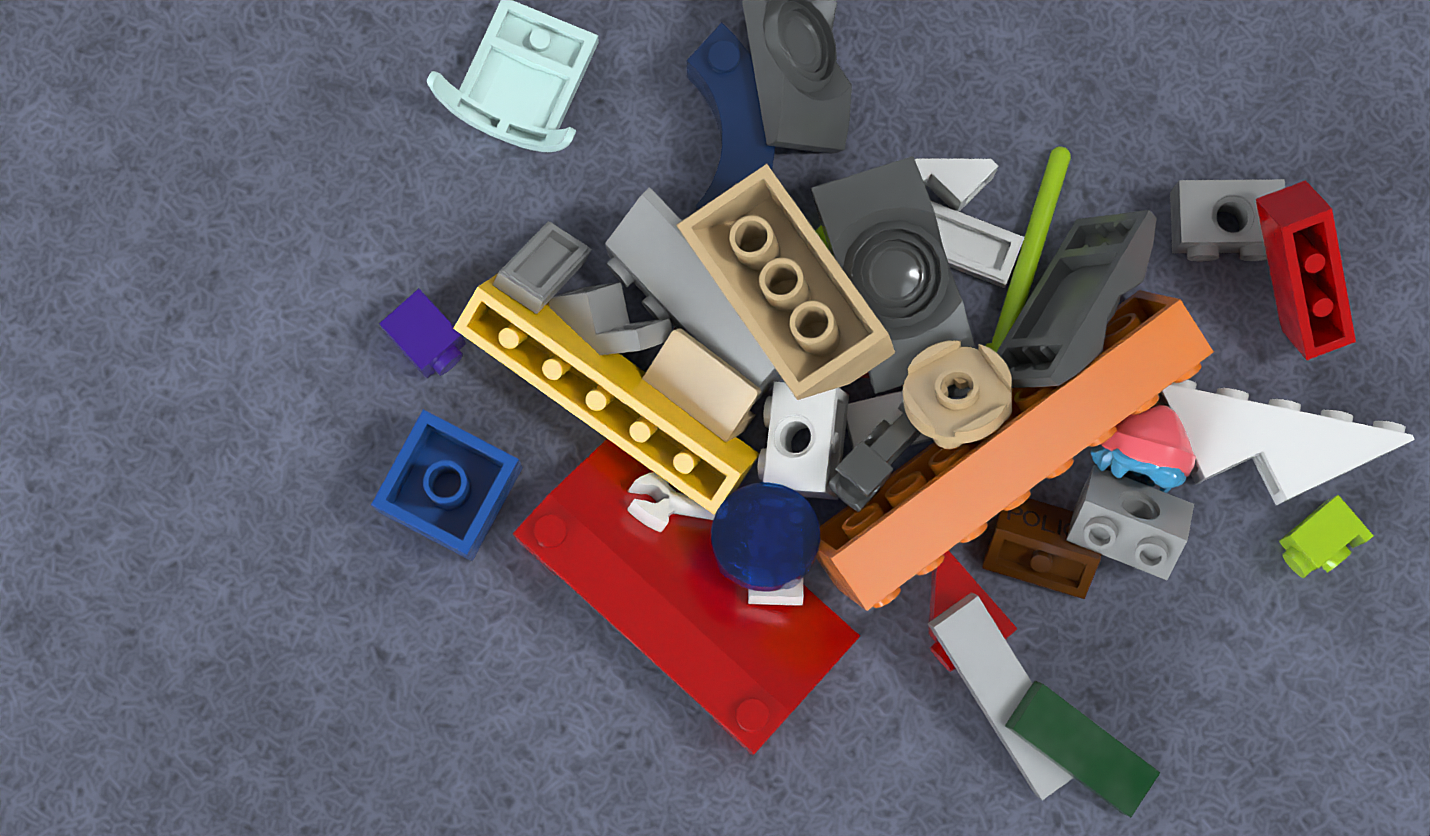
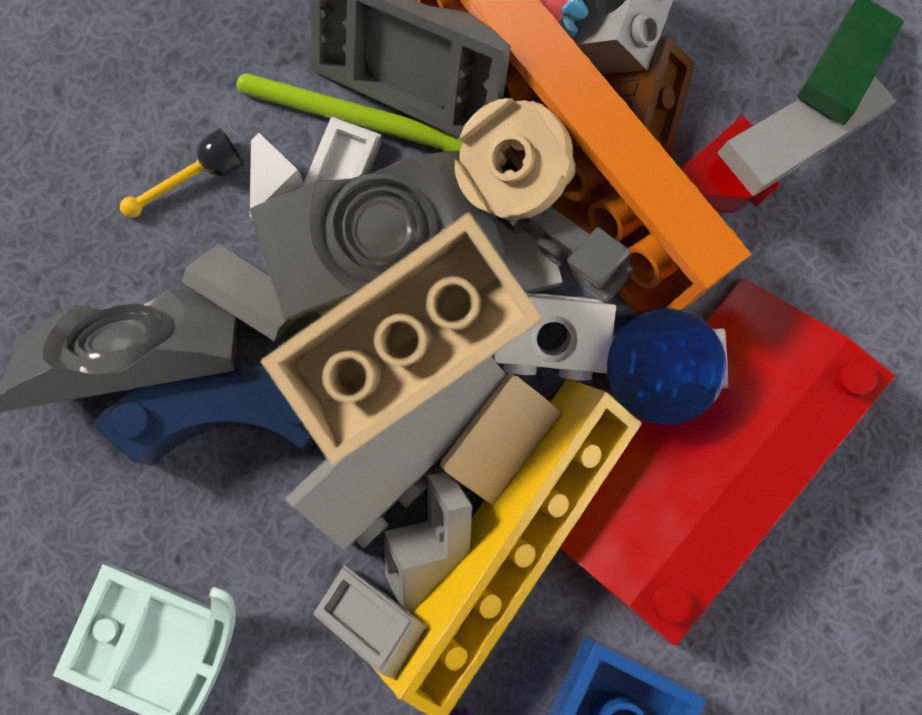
camera: 90 degrees left, 0 degrees up
(668, 502) = (642, 484): white bar -> none
(852, 146) = (238, 289): none -> light grey tile
(984, 128) = (214, 155): none -> hinge

